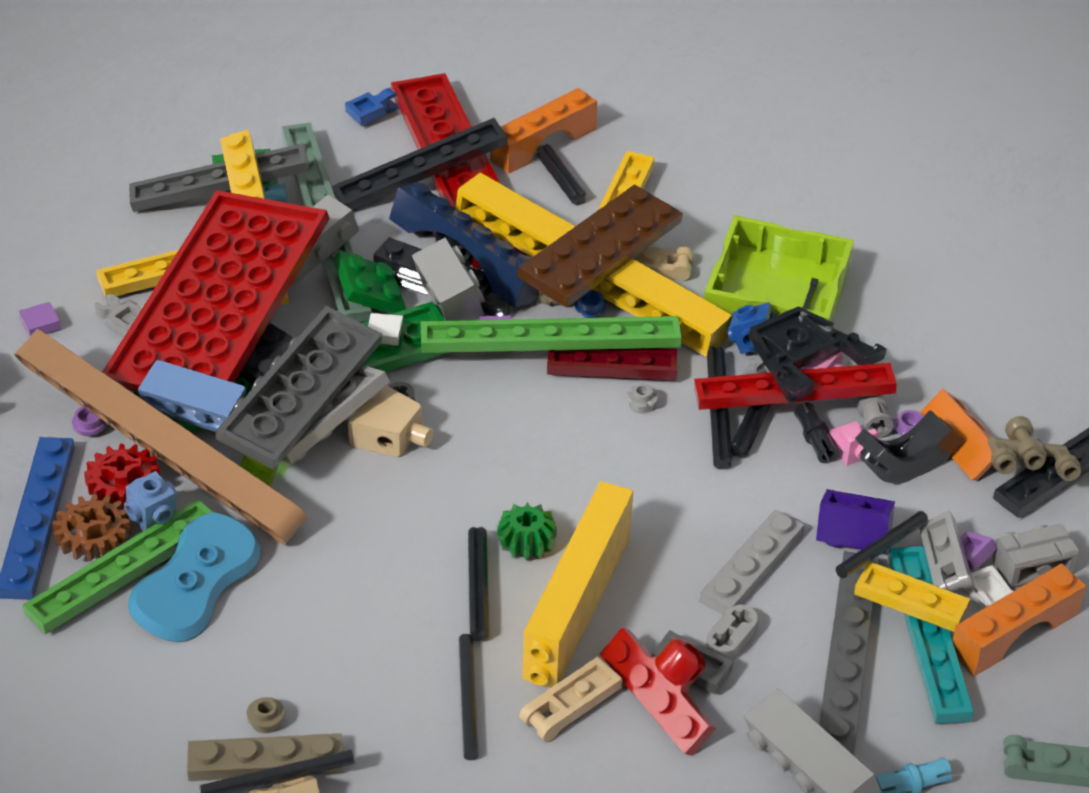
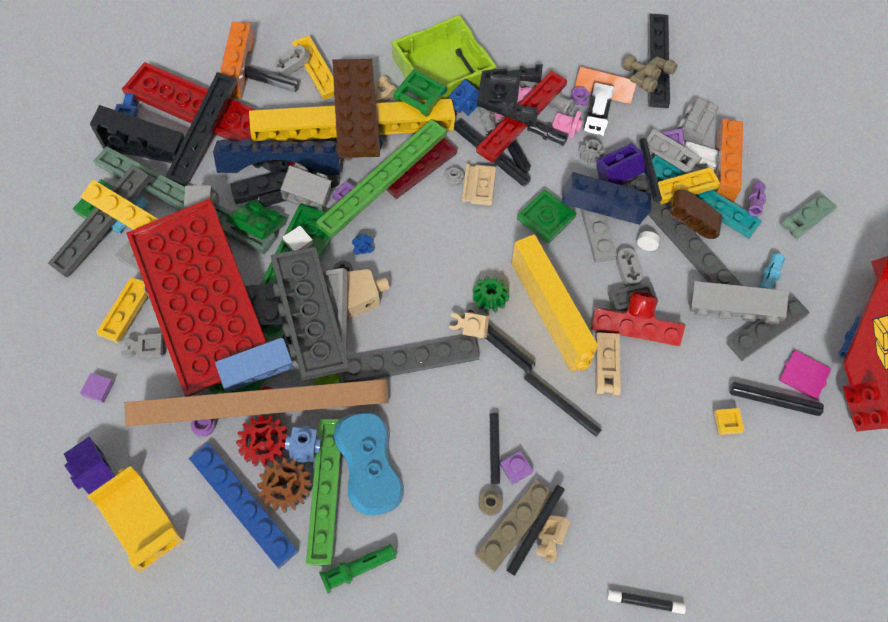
camera: 45 degrees left, 20 degrees up
(50, 648) = (347, 571): none -> green pin
(337, 709) = (516, 467): none -> medium lavender plate
(338, 674) = (494, 449): none -> black bar
(345, 126) = (135, 136): none -> black wedge
(367, 529) = (411, 360): none -> dark grey plate
(450, 385) = (362, 244): none -> blue plate
(465, 539) = (473, 324): none -> tan plate
(602, 167) = (292, 60): none -> light grey beam
(658, 424) = (479, 184): none -> tan plate
(697, 509) = (546, 216): none -> green plate
(704, 275) = (423, 87): none -> green plate
(783, 533) = (606, 198): none -> dark blue brick
(791, 623) = (648, 241): none -> white tile
(845, 480) = (591, 151): none -> light grey gear
(883, 634) = (696, 214): none -> reddish brown beam
(999, 685) = (756, 205): none -> medium lavender pin

